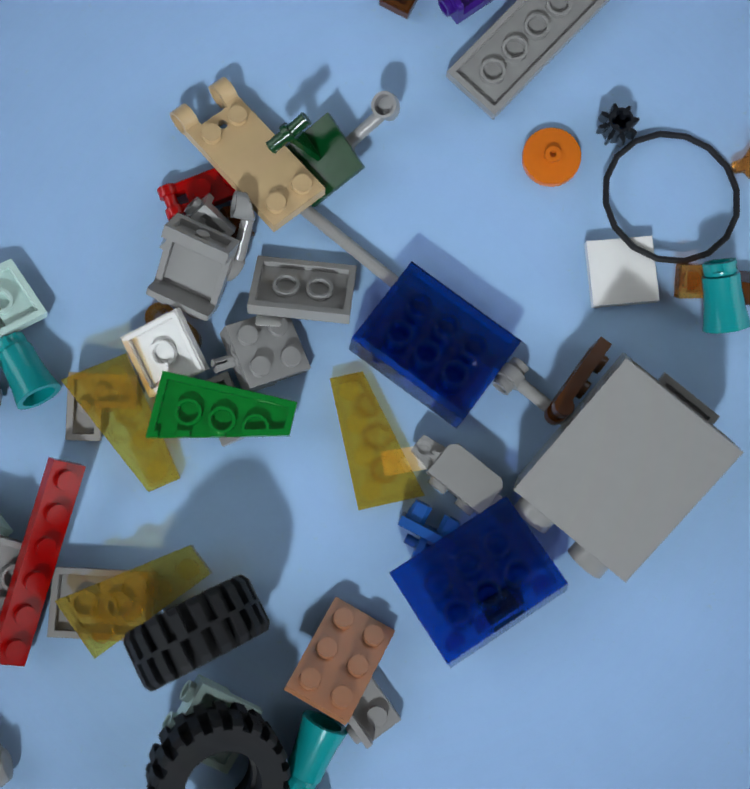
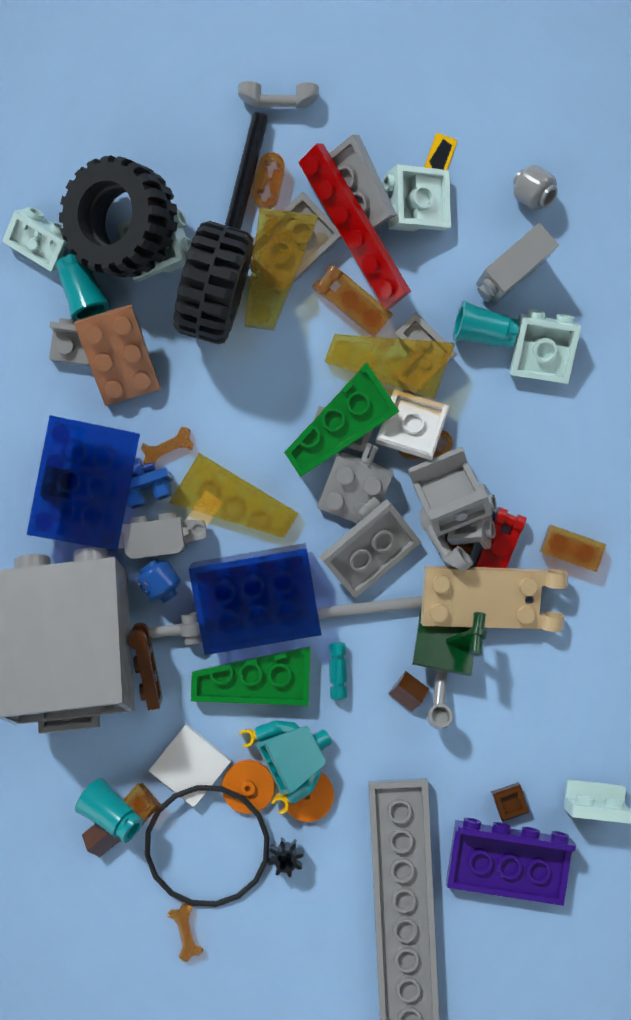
camera: 135 degrees right, 5 degrees up
(61, 670) = (262, 180): none -> clear orange beam
(72, 706) = (246, 170): none -> black axle
(104, 503) = (353, 301): none -> clear orange plate
(147, 131) = (572, 548): none -> clear orange plate
(362, 536) = (181, 440): none -> clear orange piece
(390, 153) = (409, 691): none -> reddish brown slope
(428, 225) = (337, 670): none -> teal axle
(497, 279) = (265, 679): none -> green wing
(498, 439) = (158, 581): none -> blue head
(534, 194) = (291, 757): none -> teal torso
(585, 212) = (250, 780): none -> orange piece

